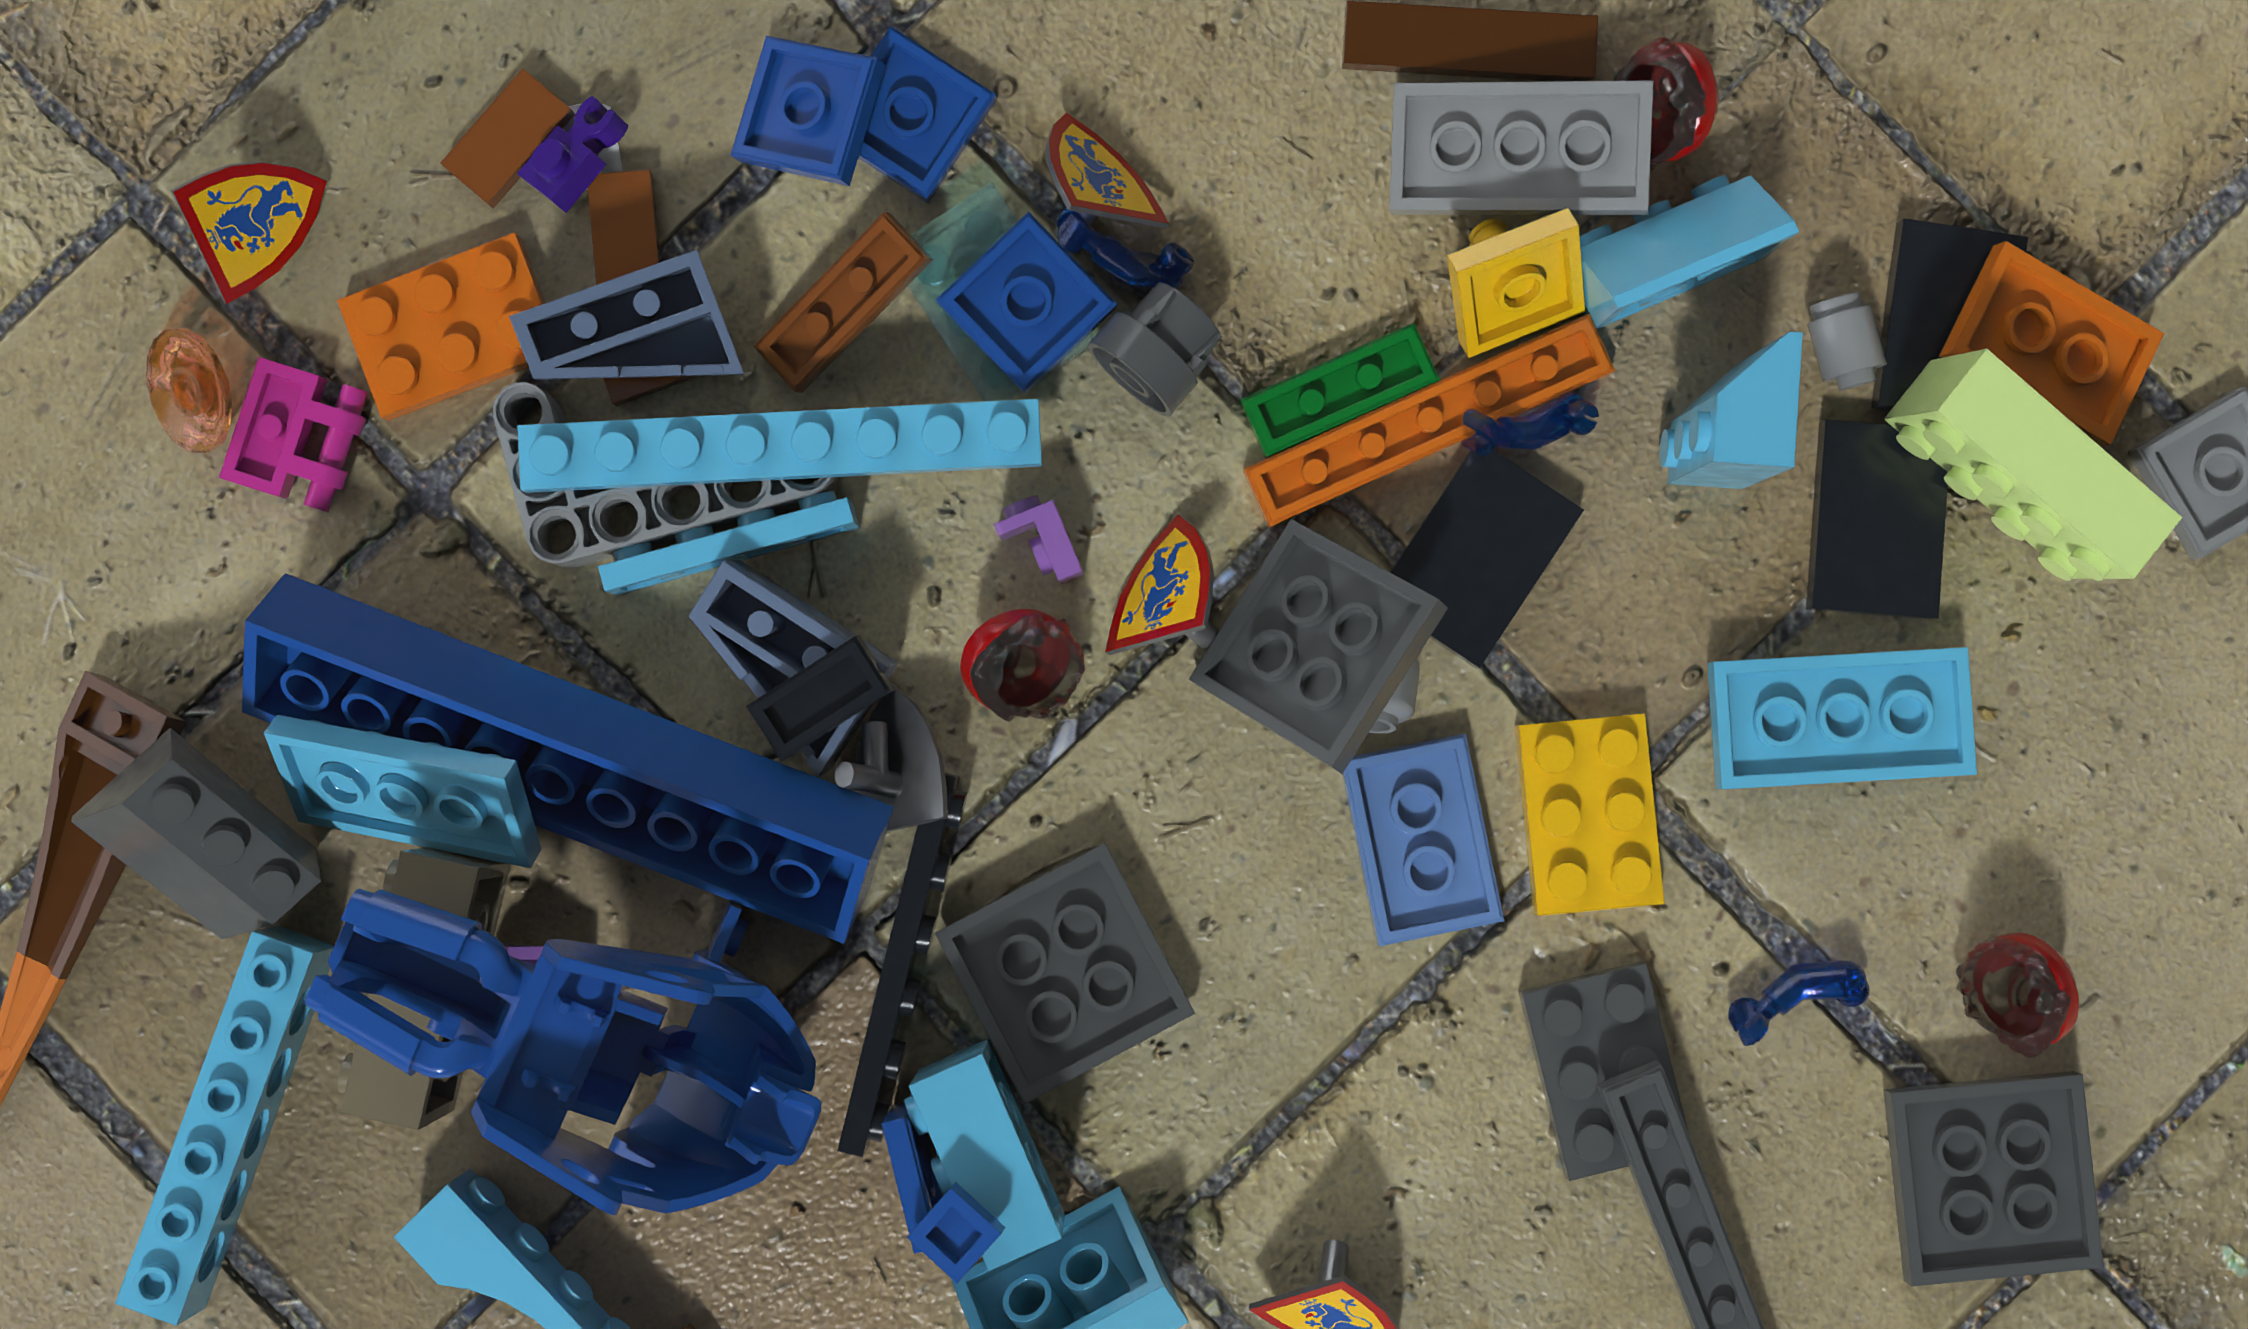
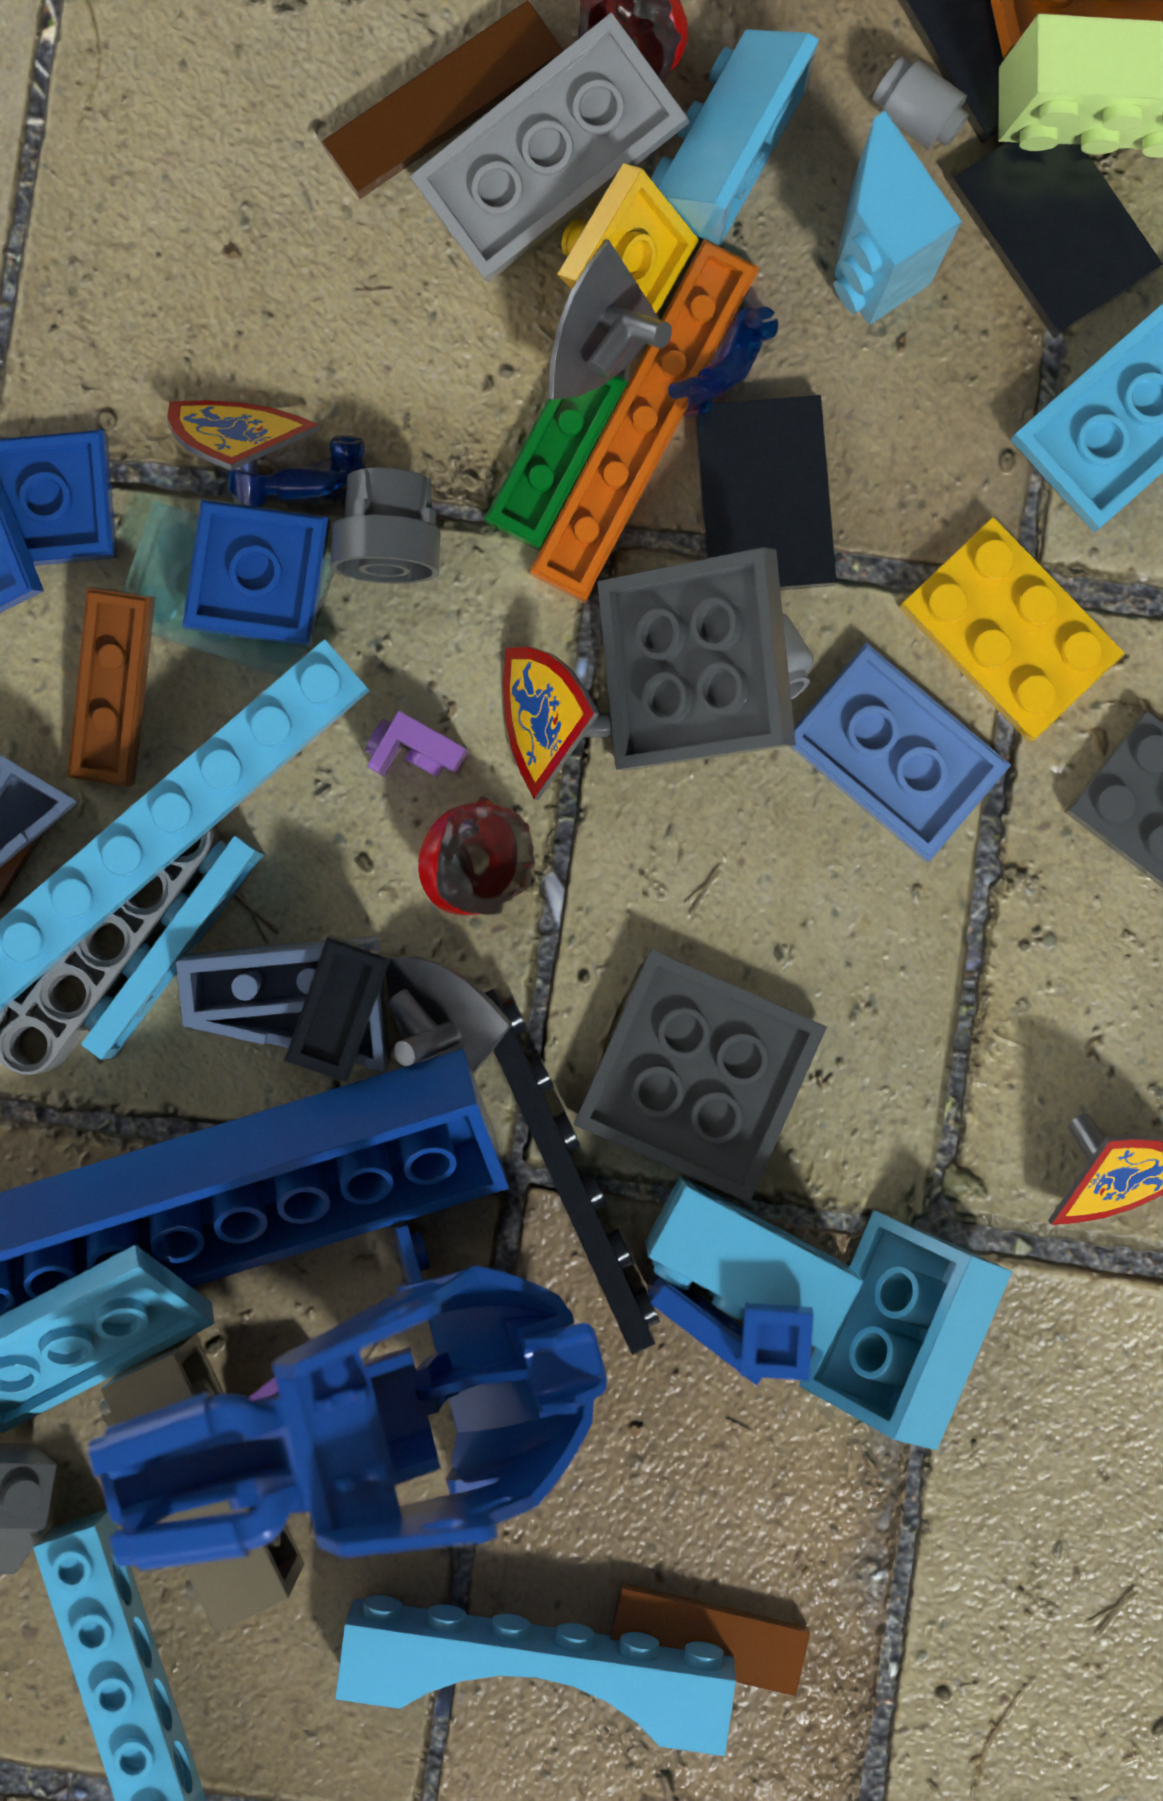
camera: 30 degrees left, 0 degrees up
(1450, 323) = (601, 327): none -> flat silver shield

